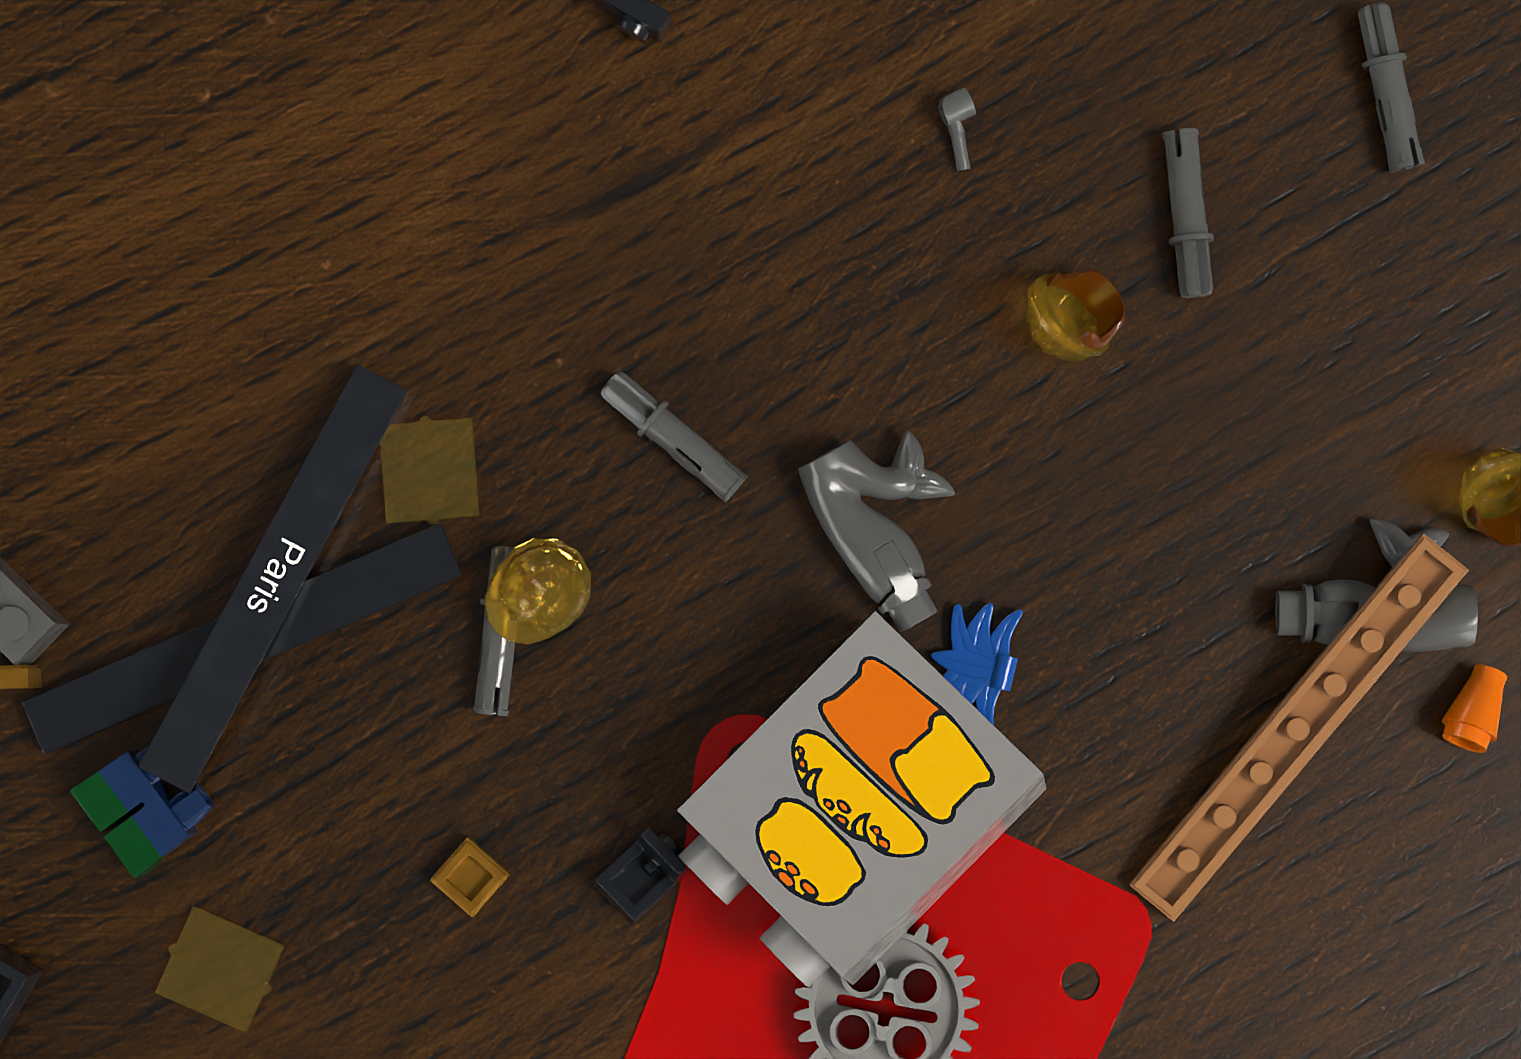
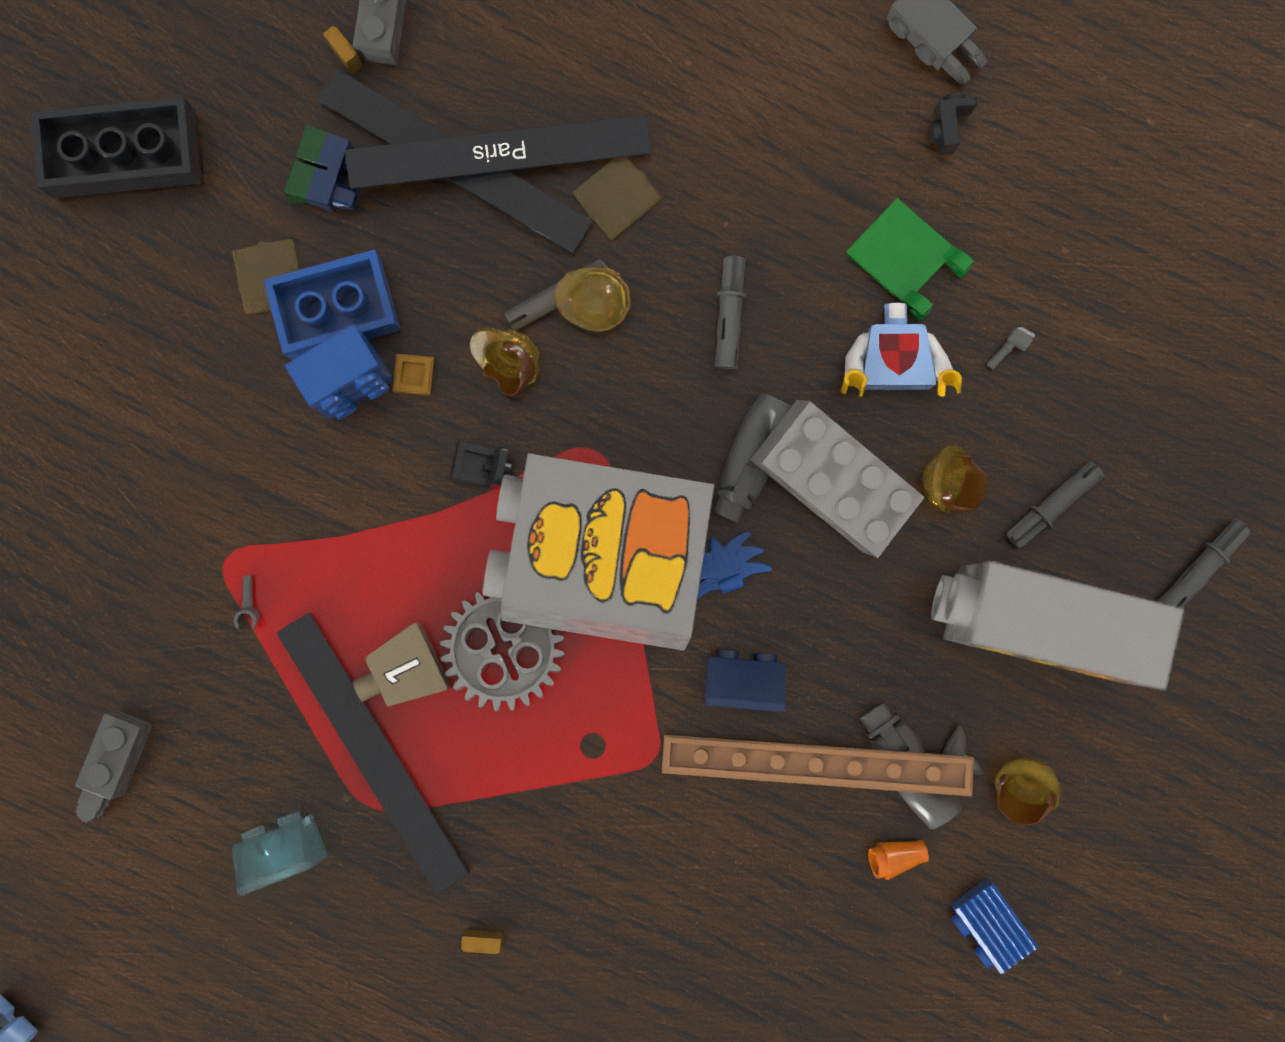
camera: 55 degrees right, 0 degrees up
(315, 917) = (328, 298): none -> blue brick
(413, 968) = (340, 373): none -> blue brick
(535, 748) = (506, 358): none -> clear yellow piece
(756, 173) = (905, 255): none -> green flag
(875, 273) = (898, 357): none -> torso
(970, 454) = (837, 478): none -> light grey brick
(1137, 742) = (745, 682): none -> dark blue slope
(1339, 323) = (1059, 623): none -> light grey brick

